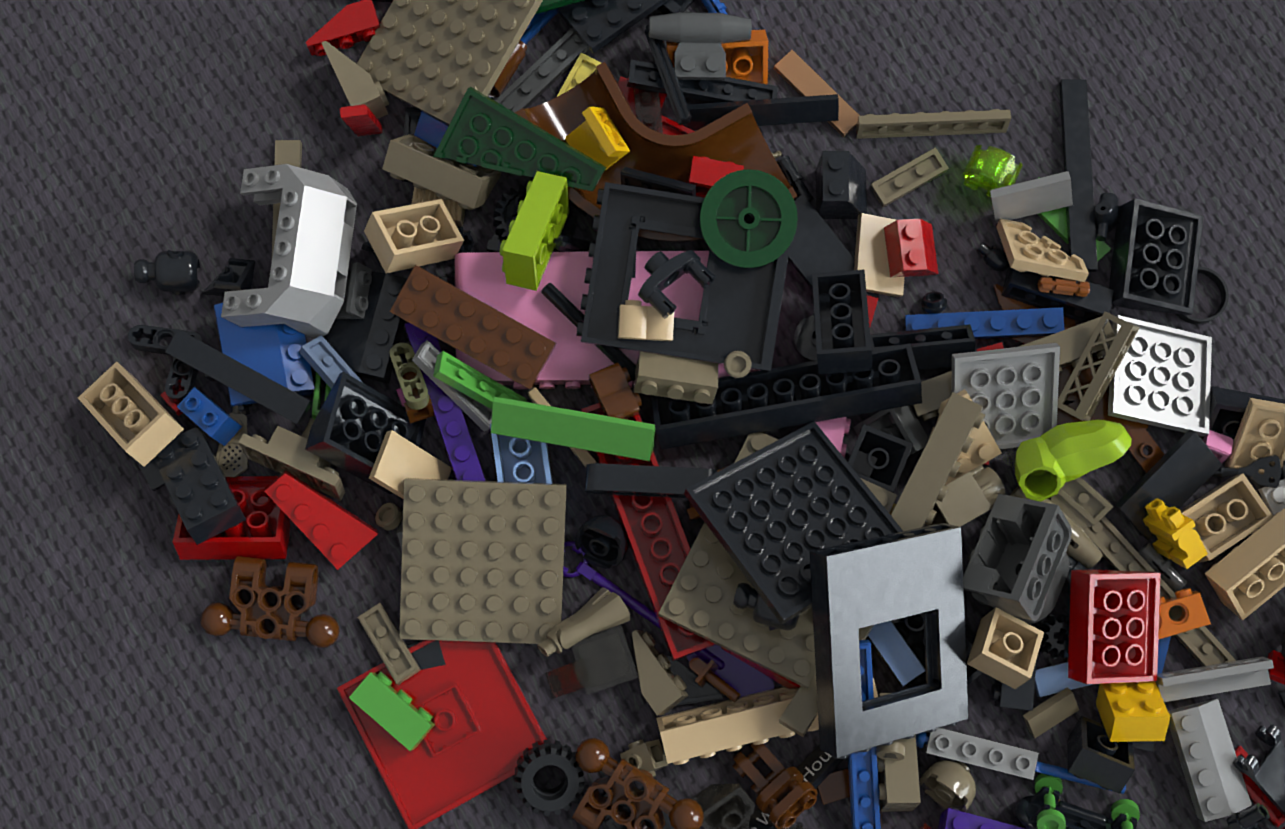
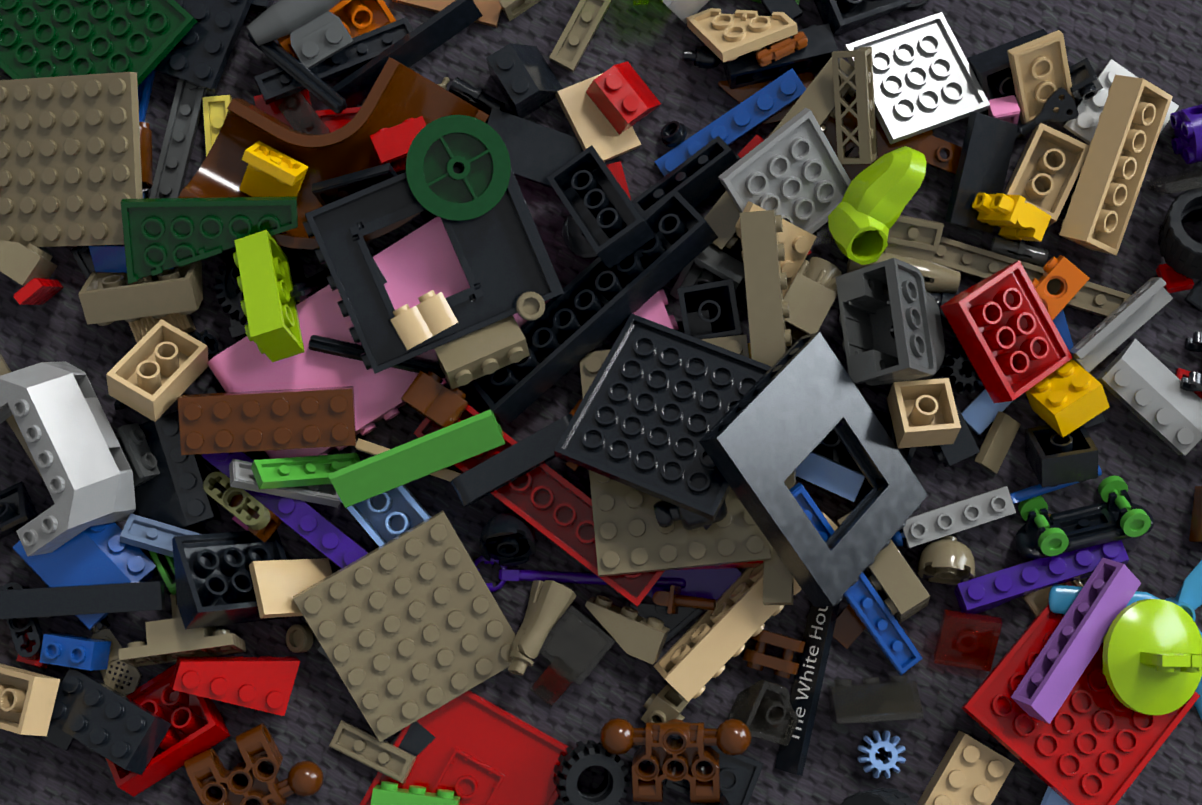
camera: 30 degrees left, 5 degrees up
(665, 272) = (413, 262): black connector -> none
(786, 798) = (811, 664): reddish brown brick -> none
(891, 752) = (879, 567): dark tan tile -> none

